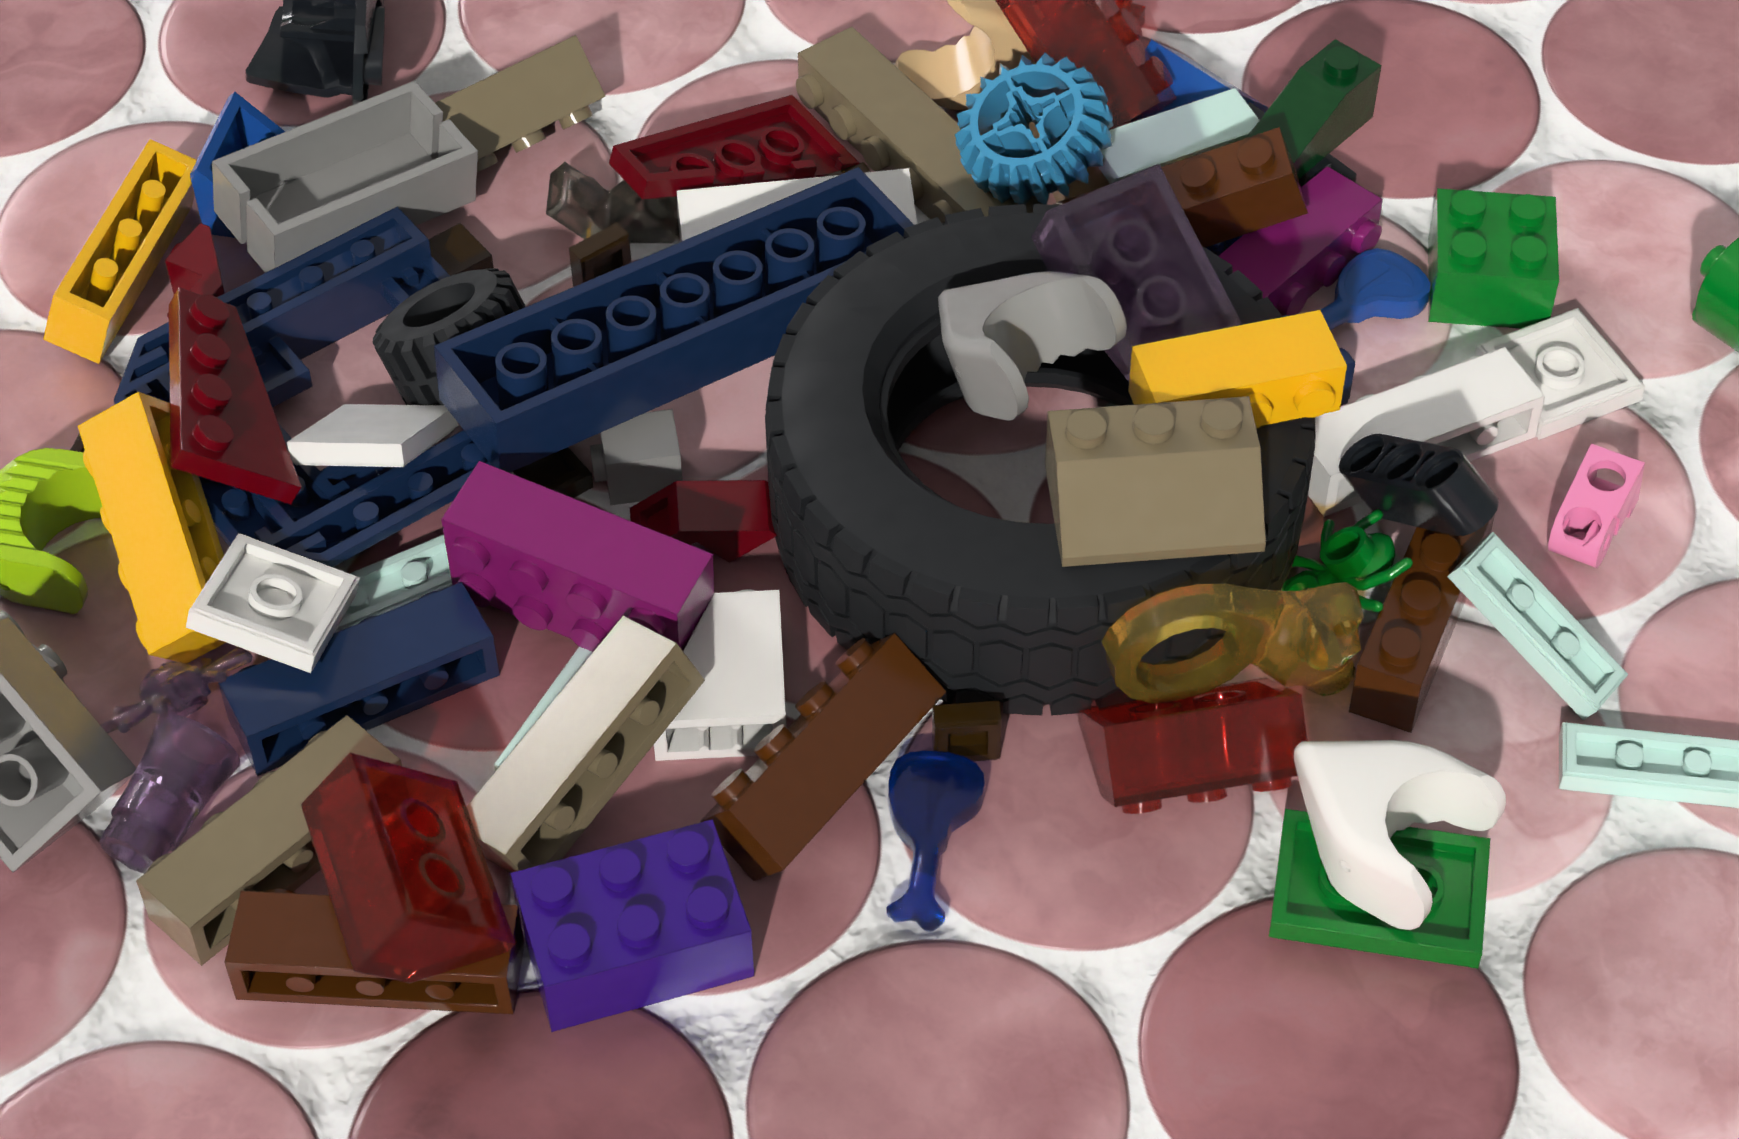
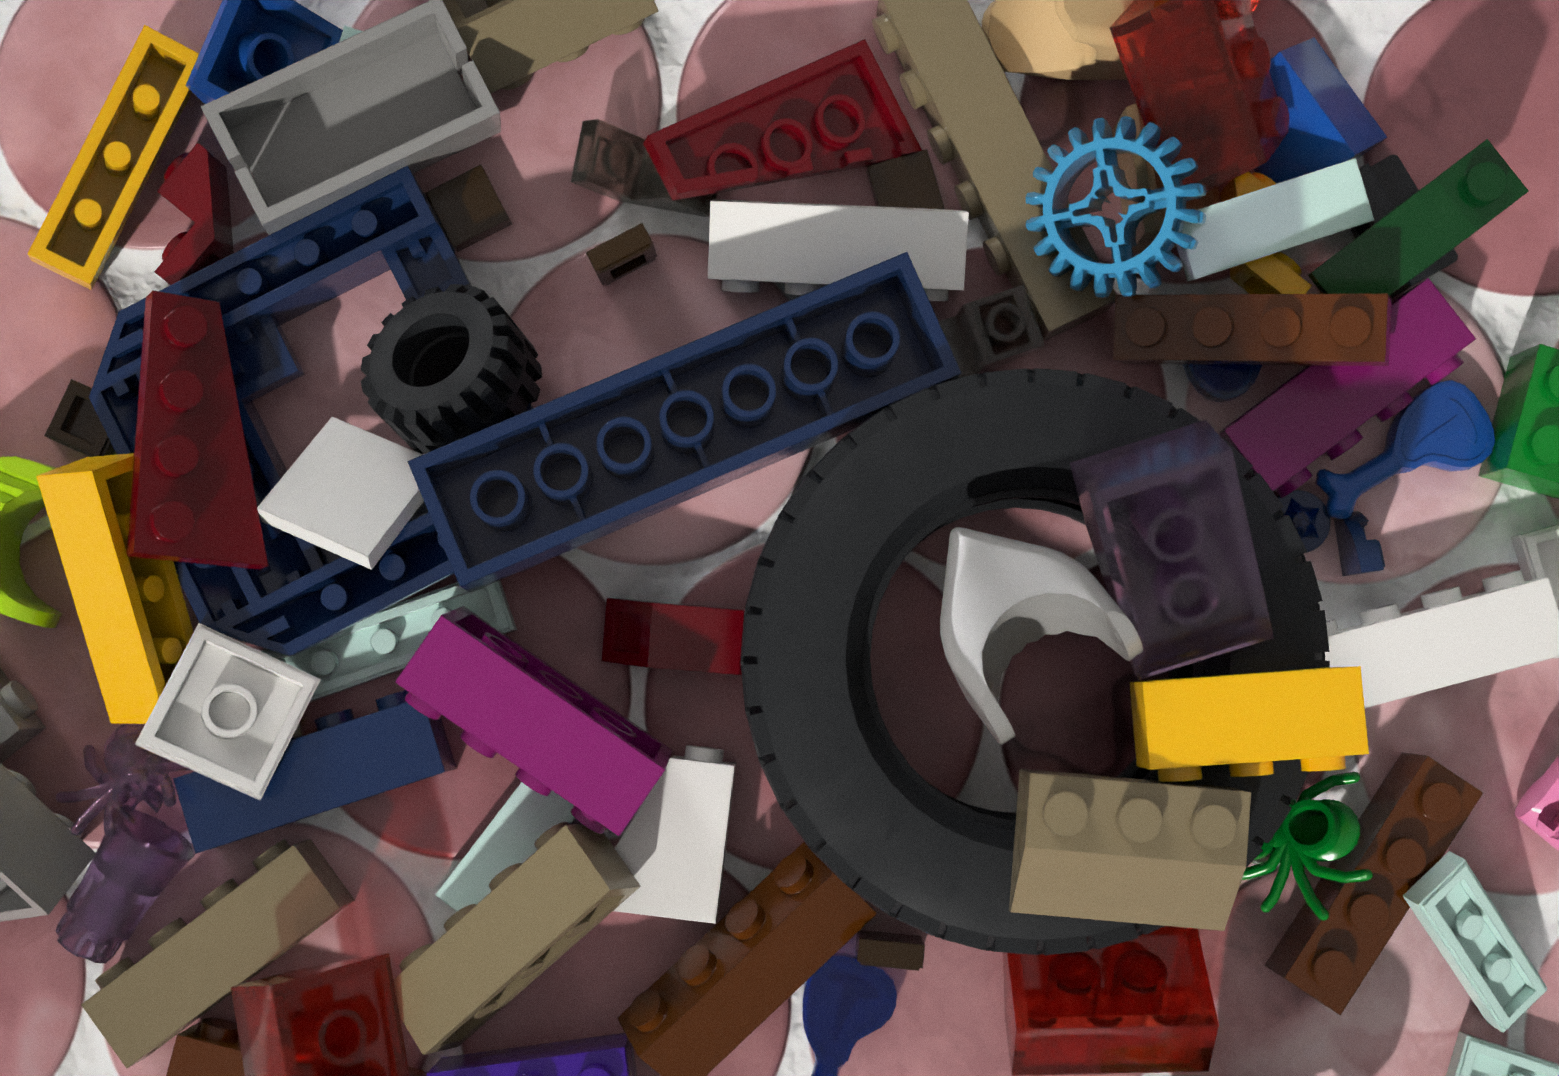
camera: 15 degrees right, 35 degrees up
(638, 457) = (629, 549): light grey brick -> none
(1286, 634) = (1237, 960): clear yellow animal -> none
(1419, 484) = (1424, 812): black beam -> none

